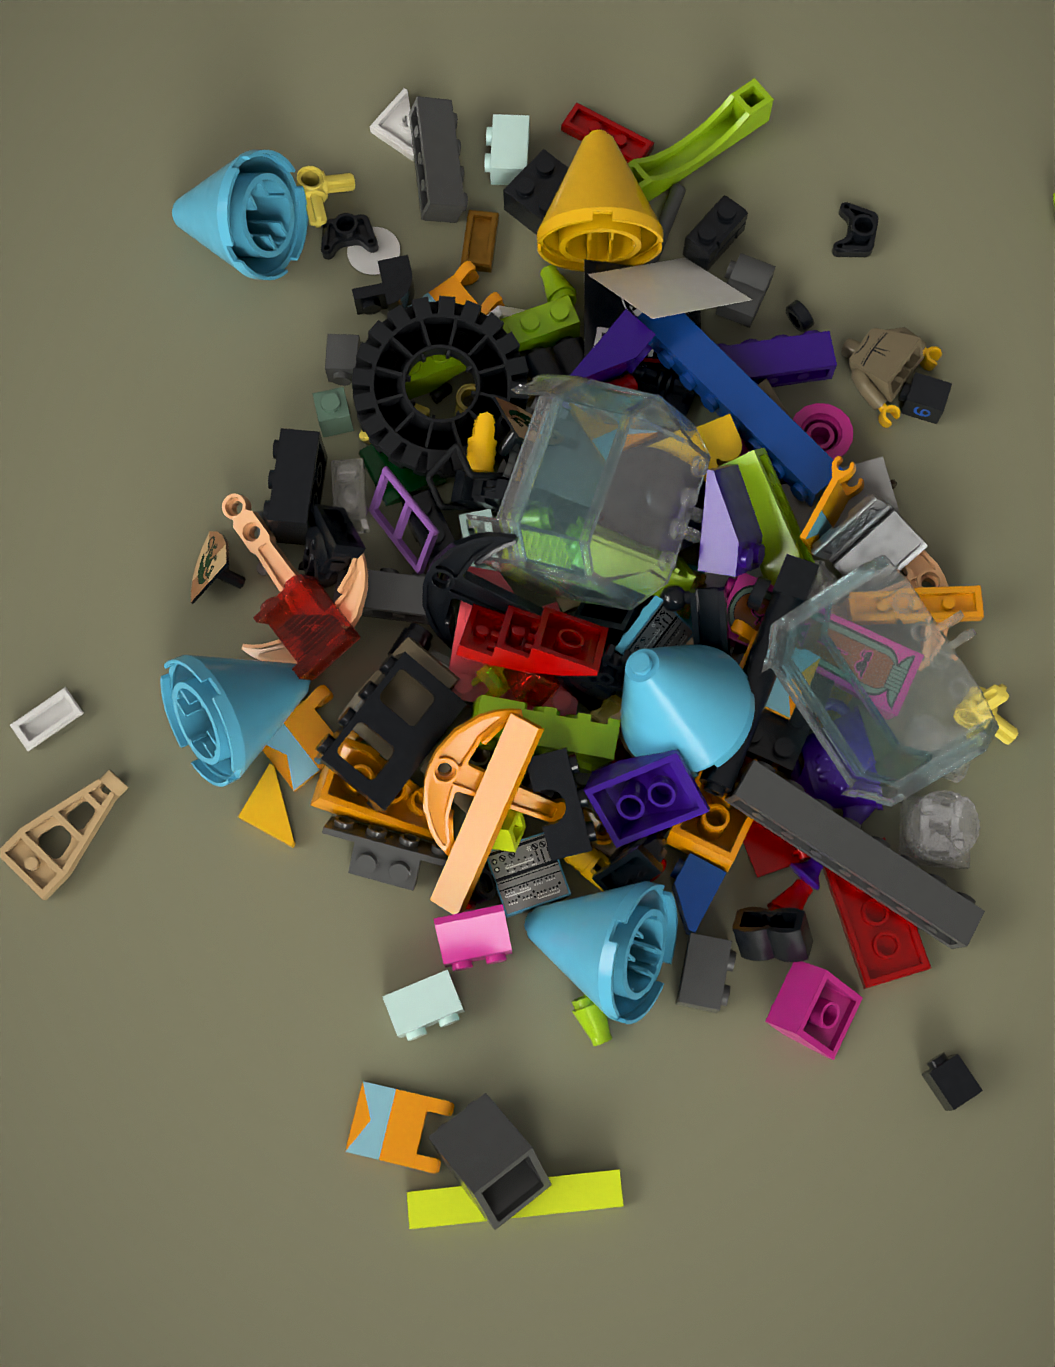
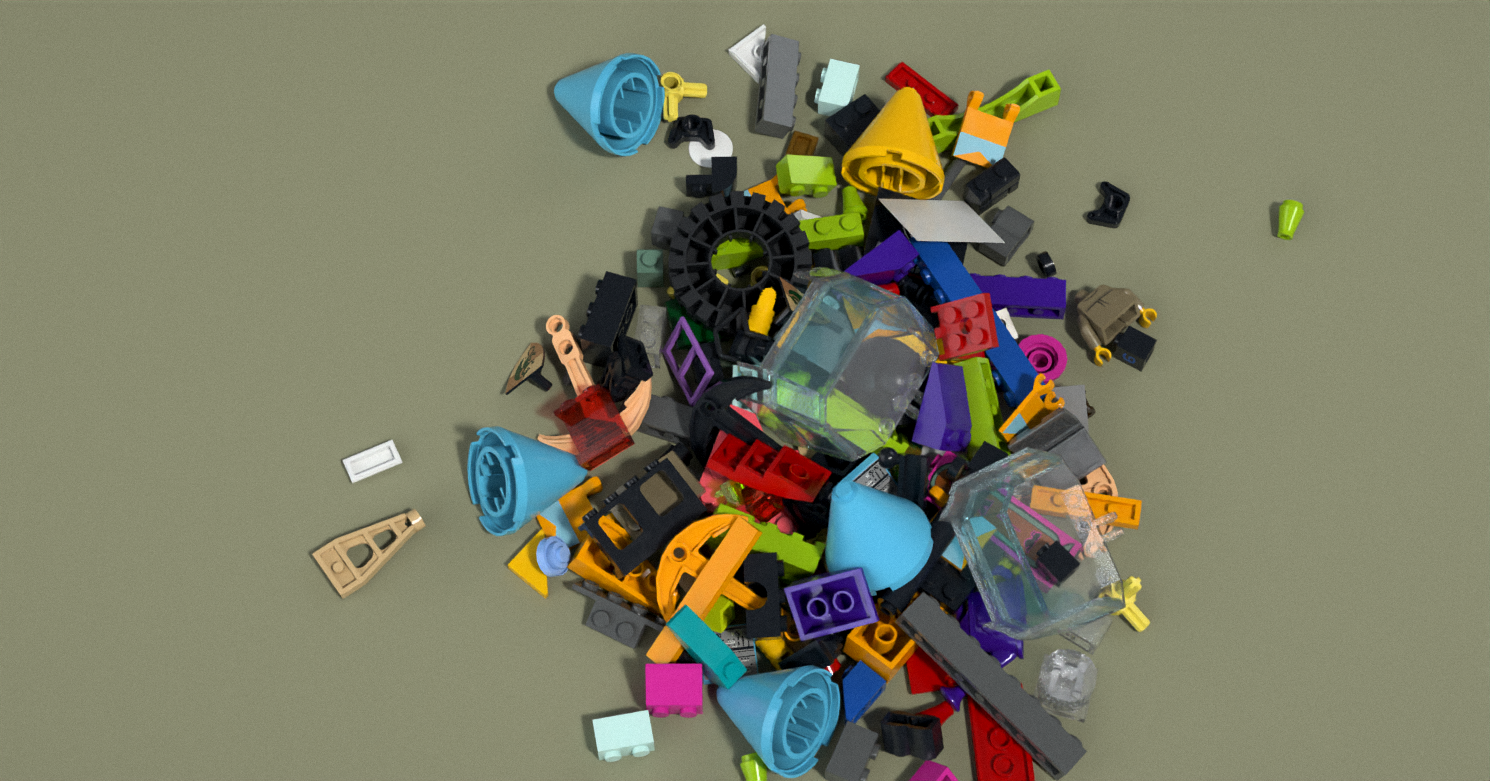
camera: 10 degrees right, 10 degrees down
(291, 796) = (553, 556): none -> light blue plate
(495, 262) = (806, 175): none -> lime brick
(503, 882) = (706, 648): none -> teal slope
(693, 172) = (982, 135): none -> light orange flag
(728, 420) = (966, 327): none -> red bracket
(902, 686) = (1056, 563): none -> black brick

